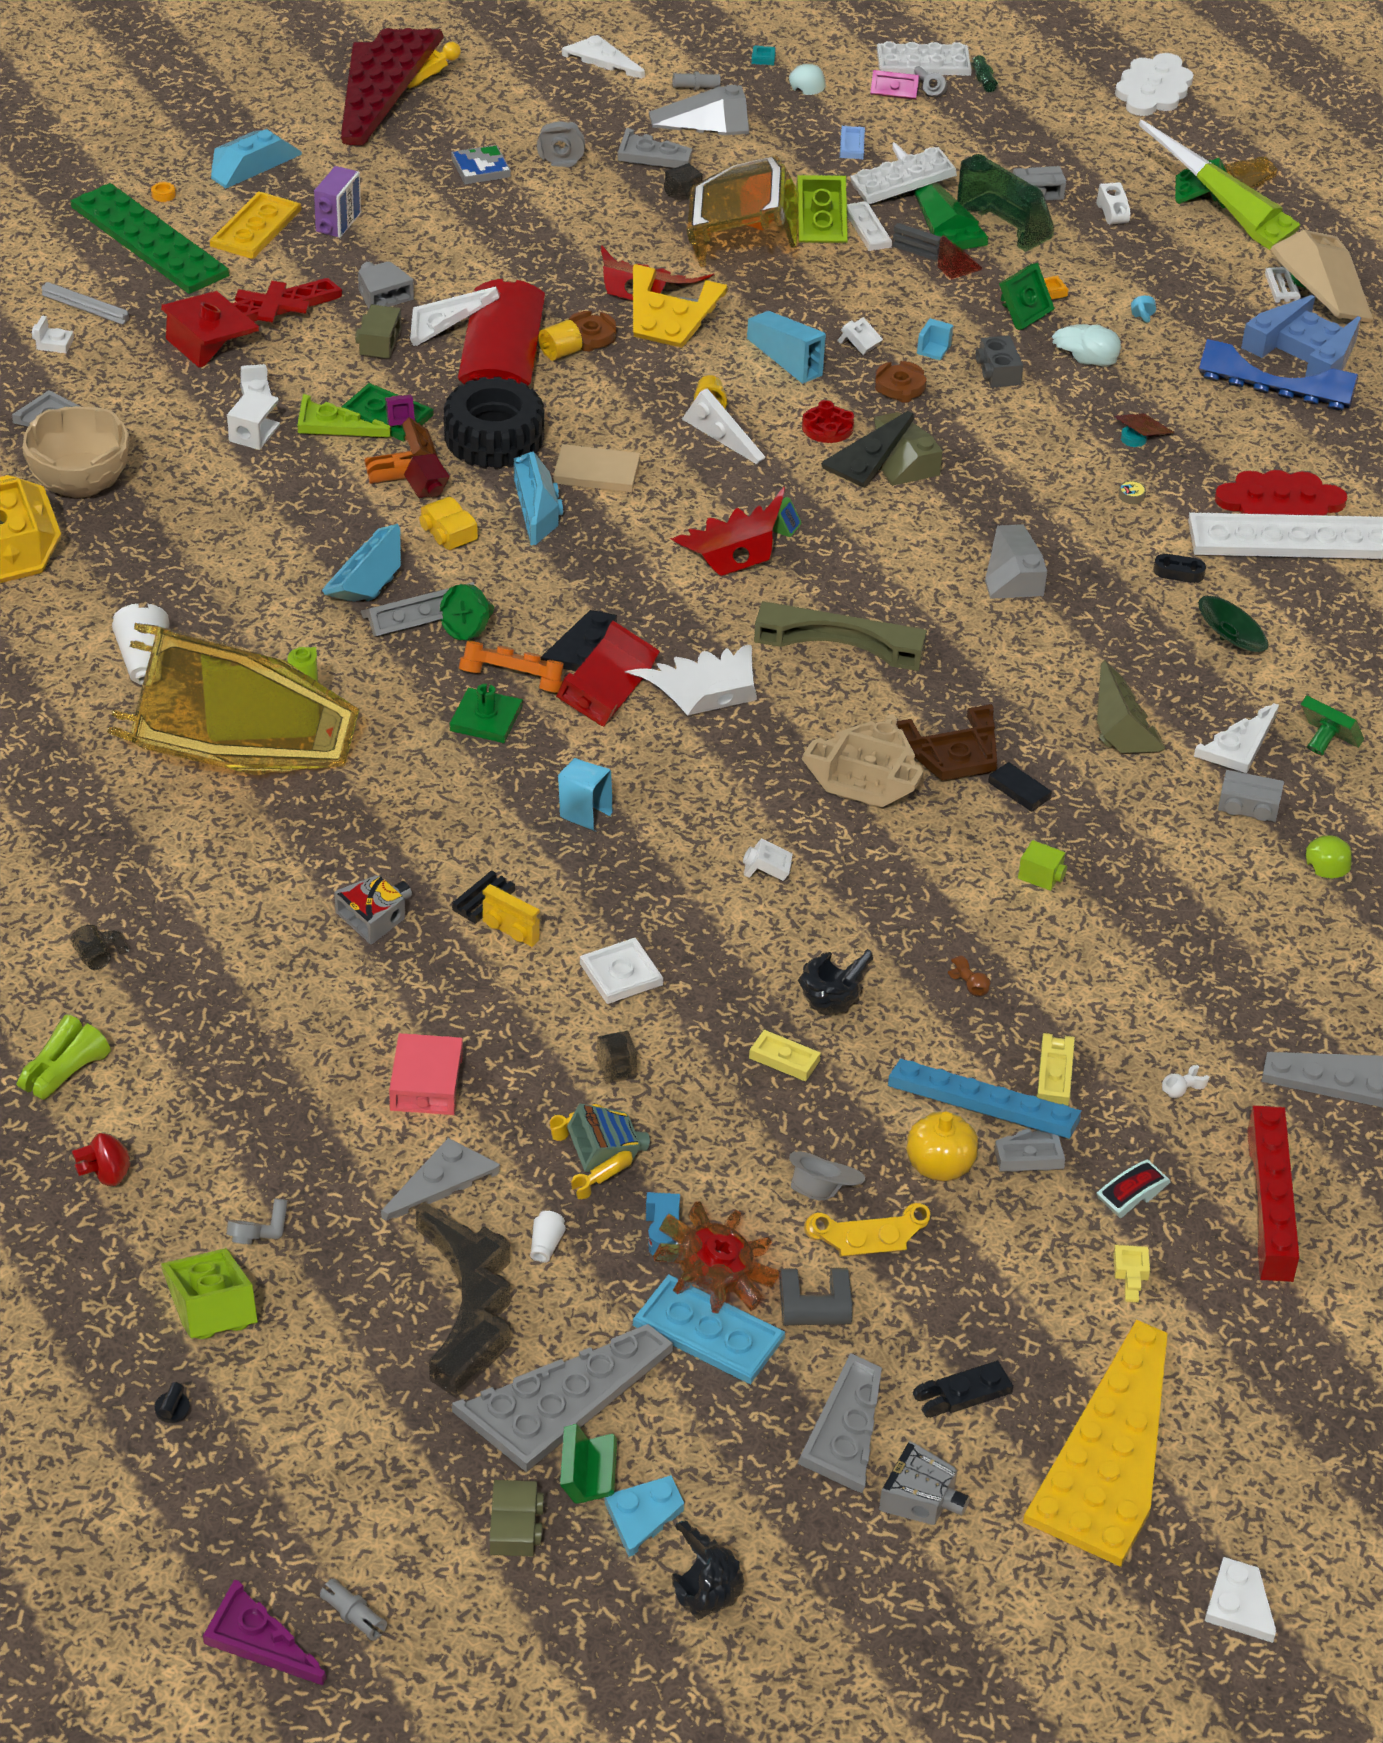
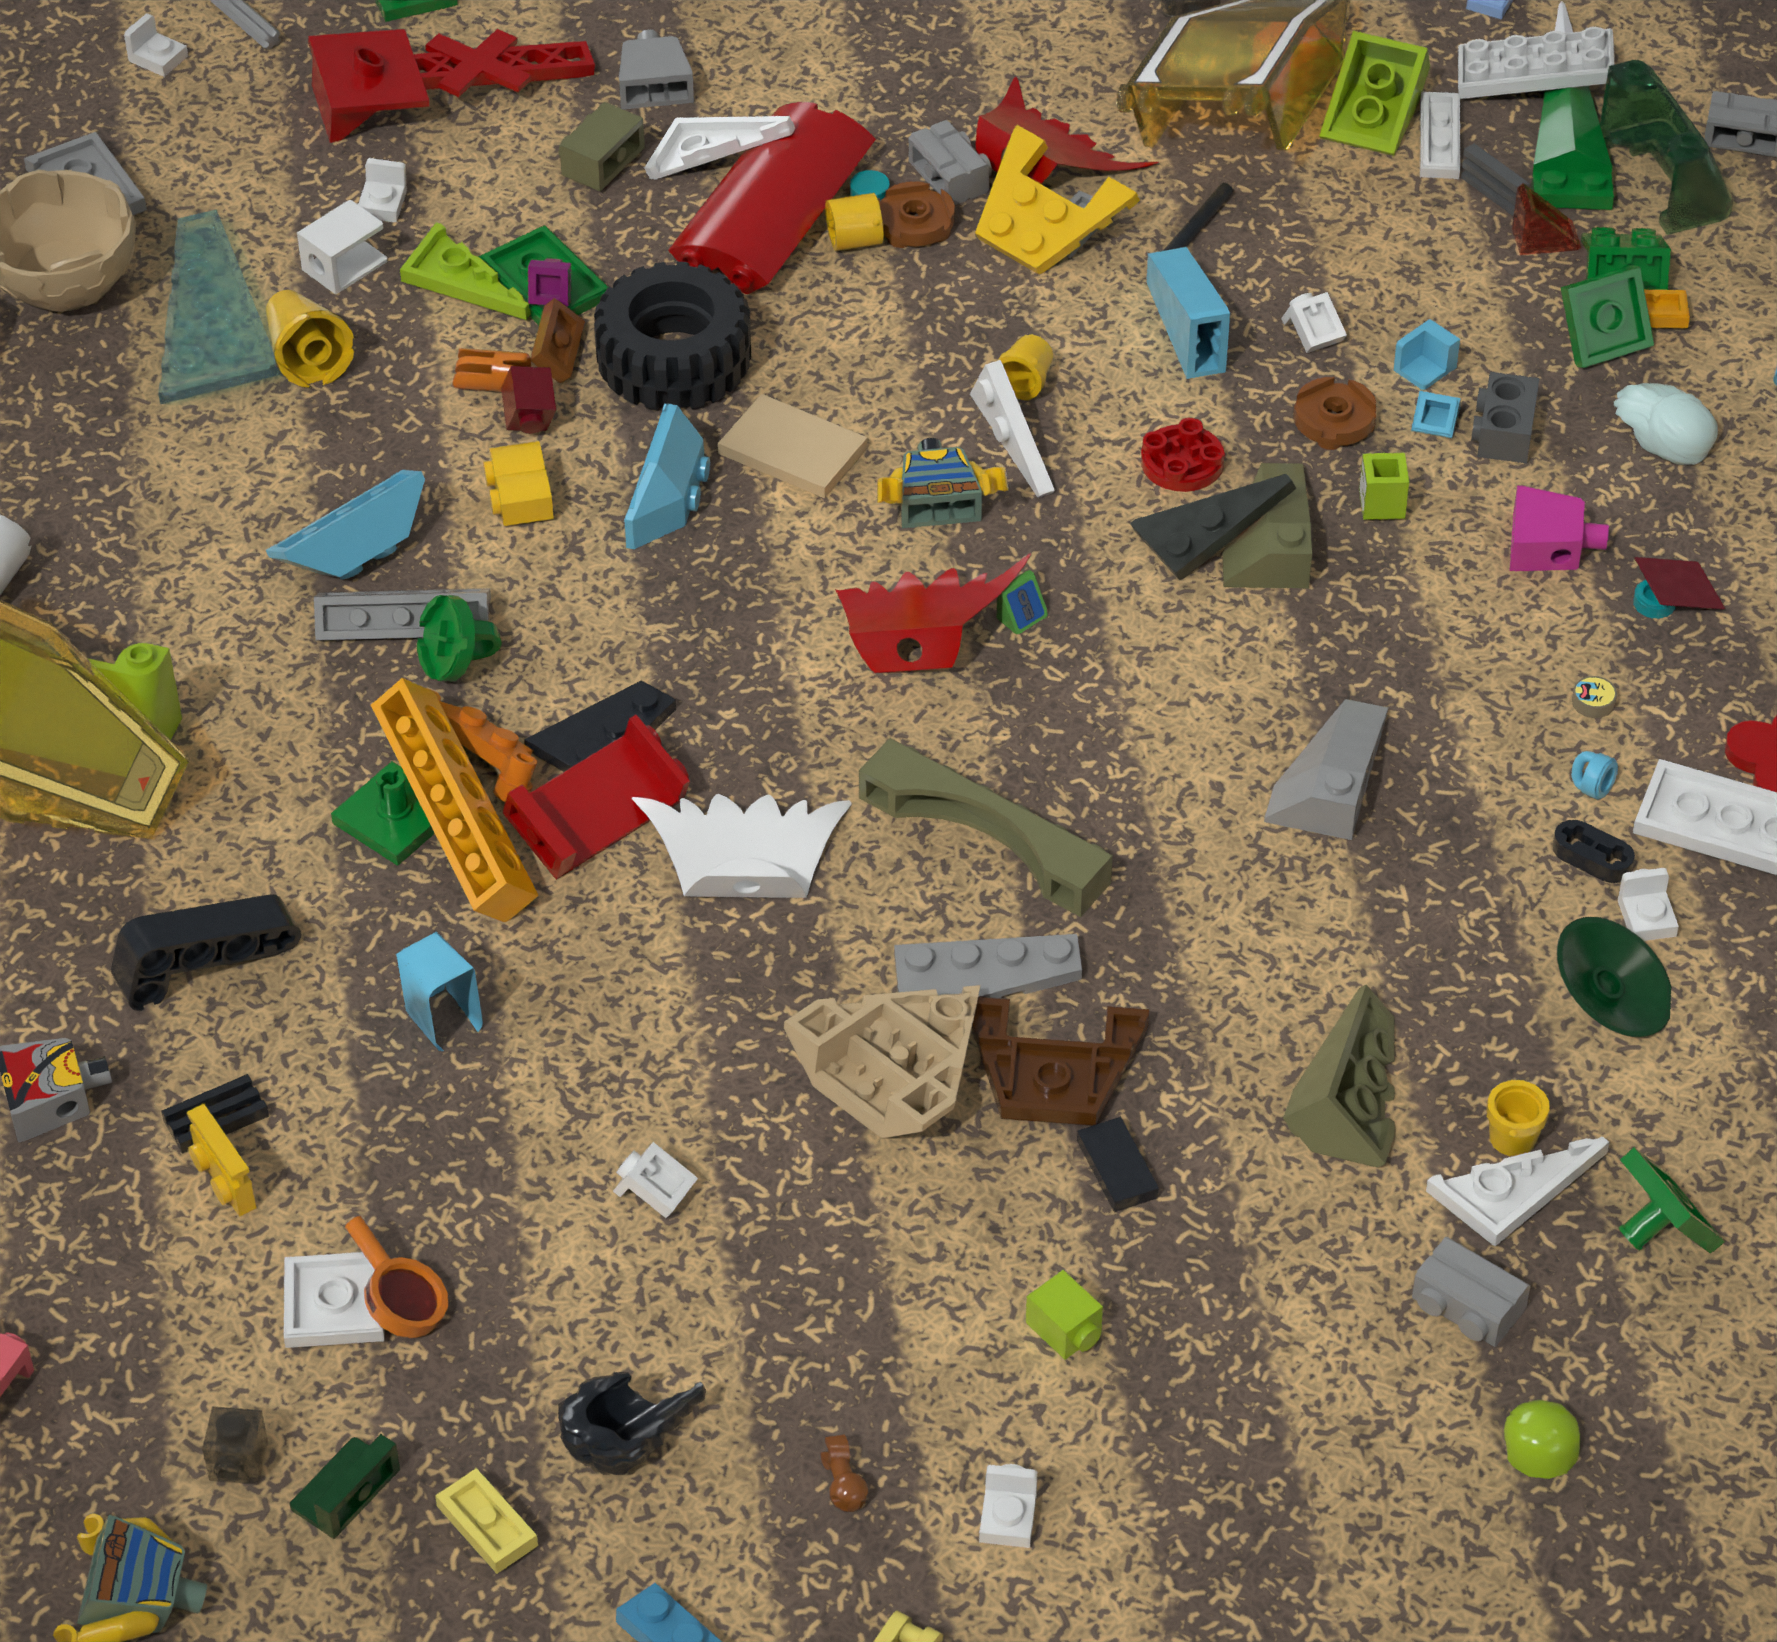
camera: 25 degrees right, 5 degrees up
(192, 478) = (211, 319): none -> clear light blue wing
(266, 472) = (308, 339): none -> yellow cone
(415, 806) = (197, 939): none -> black beam
(529, 693) = (454, 801): none -> light orange brick
(551, 318) = (869, 182): none -> teal tile
(595, 296) = (949, 162): none -> light grey brick
(657, 952) = (401, 1291): none -> orange piece
(690, 1061) = (347, 1484): none -> dark green panel
(703, 467) = (939, 486): none -> torso
(758, 296) = (1201, 217): none -> black bar
(901, 701) = (995, 964): none -> light grey wing
(956, 409) = (1384, 486): none -> lime brick
(957, 369) = (1436, 414): none -> medium azure slope
(1012, 262) = (1616, 251): none -> green bracket
(1059, 413) = (1551, 531): none -> dark pink torso
(1068, 966) = (1008, 1505): none -> white bracket
(1162, 529) = (1598, 775): none -> medium azure tile
(1223, 586) = (1646, 904): none -> white bracket
(1224, 704) = (1516, 1116): none -> yellow piece

